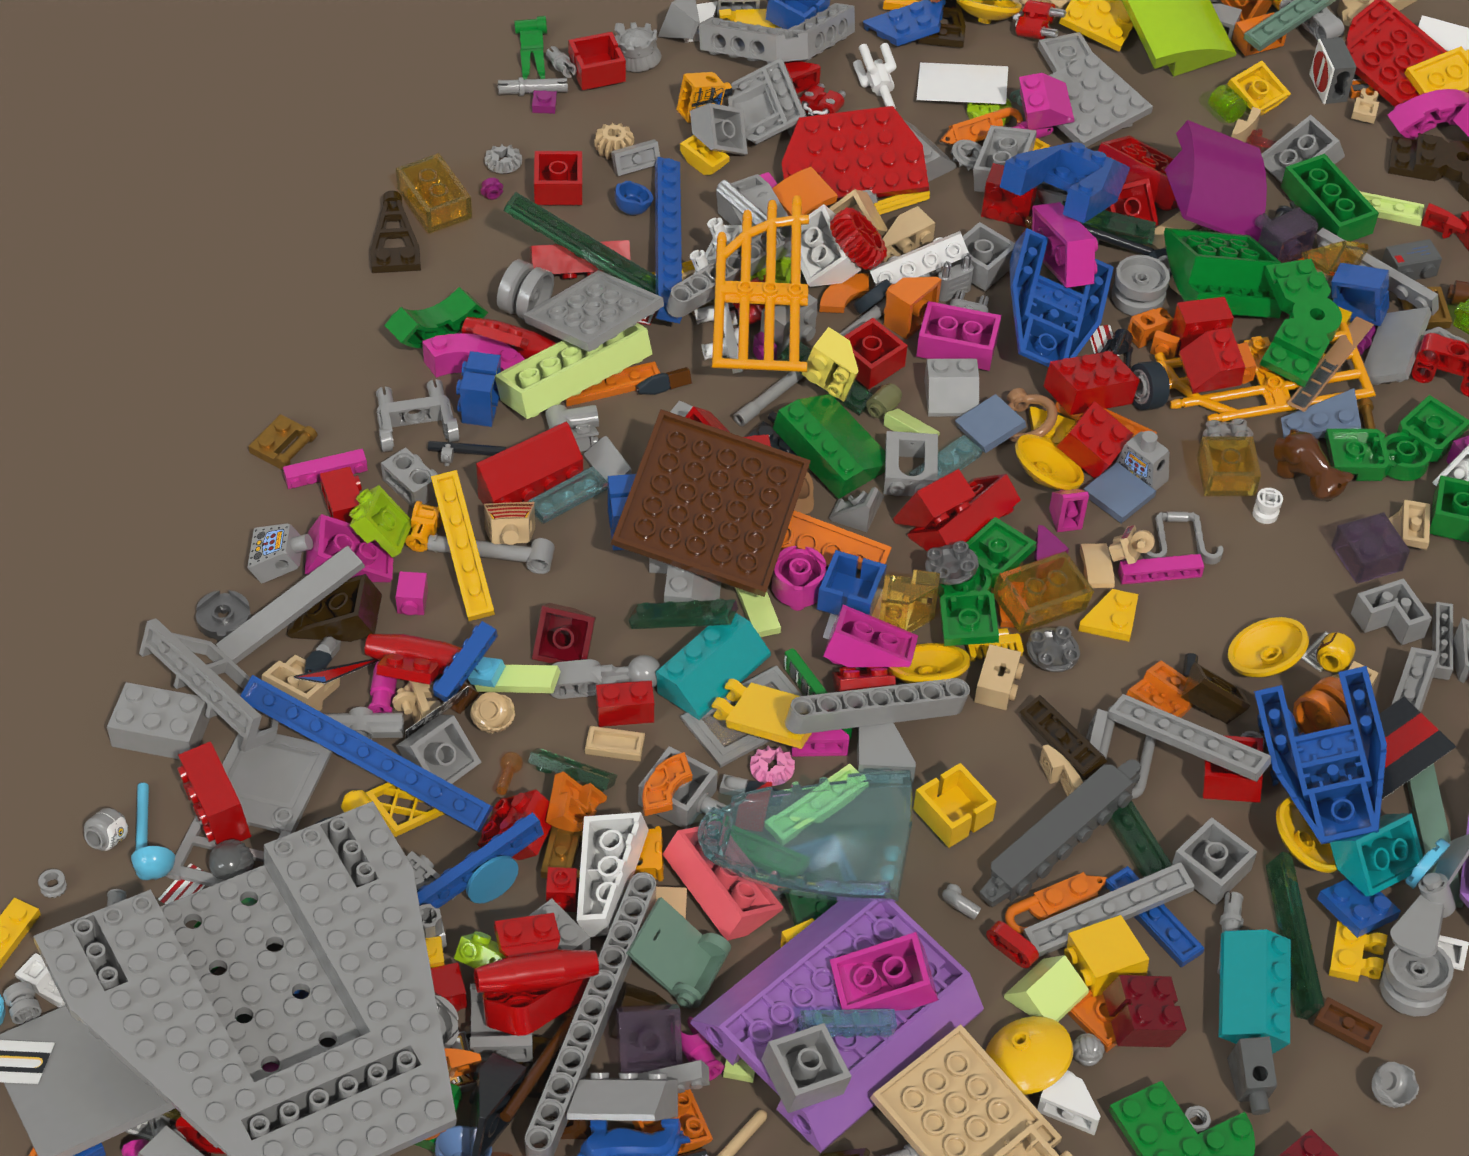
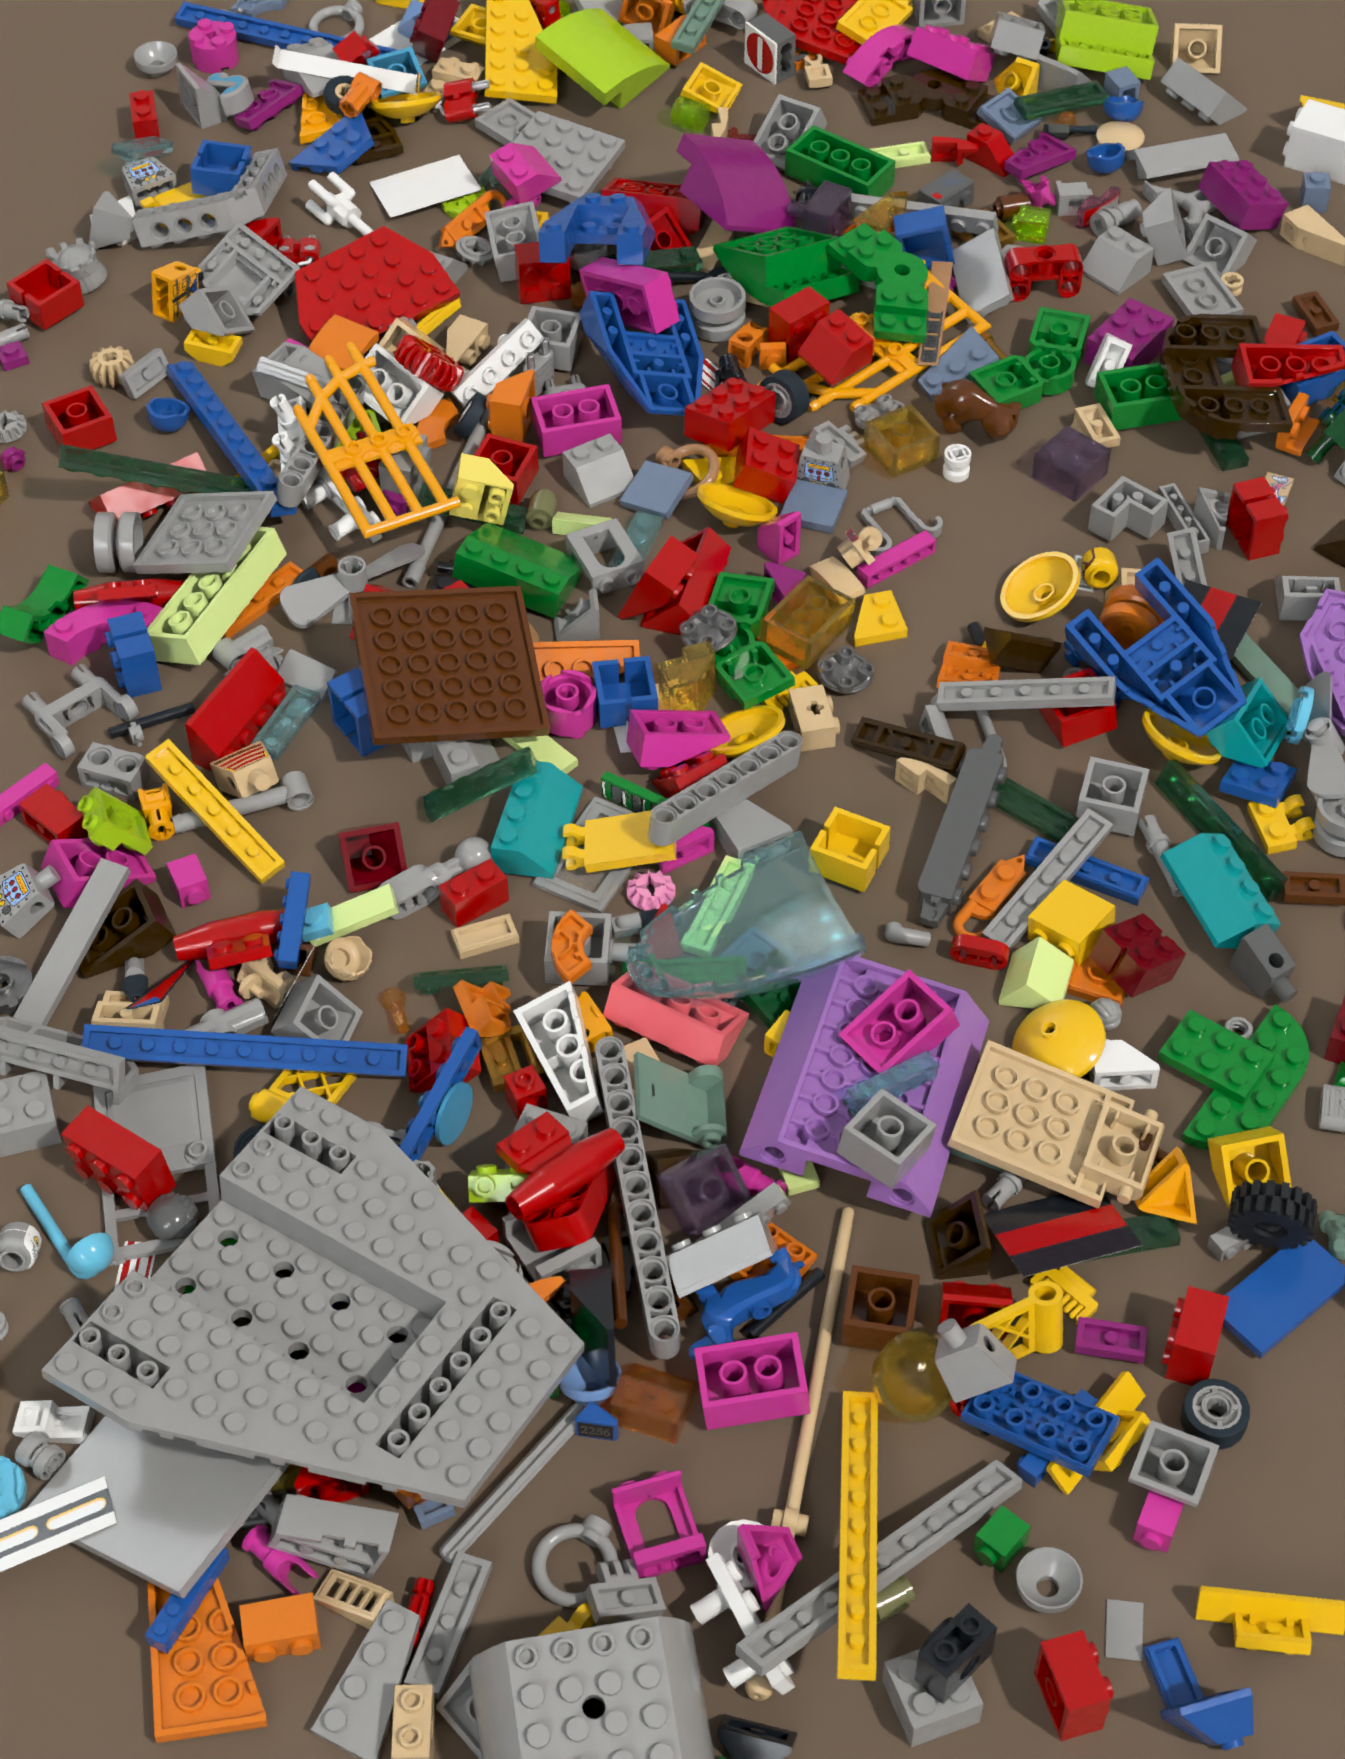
camera: 25 degrees left, 0 degrees up
(644, 400) = (313, 599): none -> light grey piece
(1178, 444) = (841, 435): none -> light grey hinge

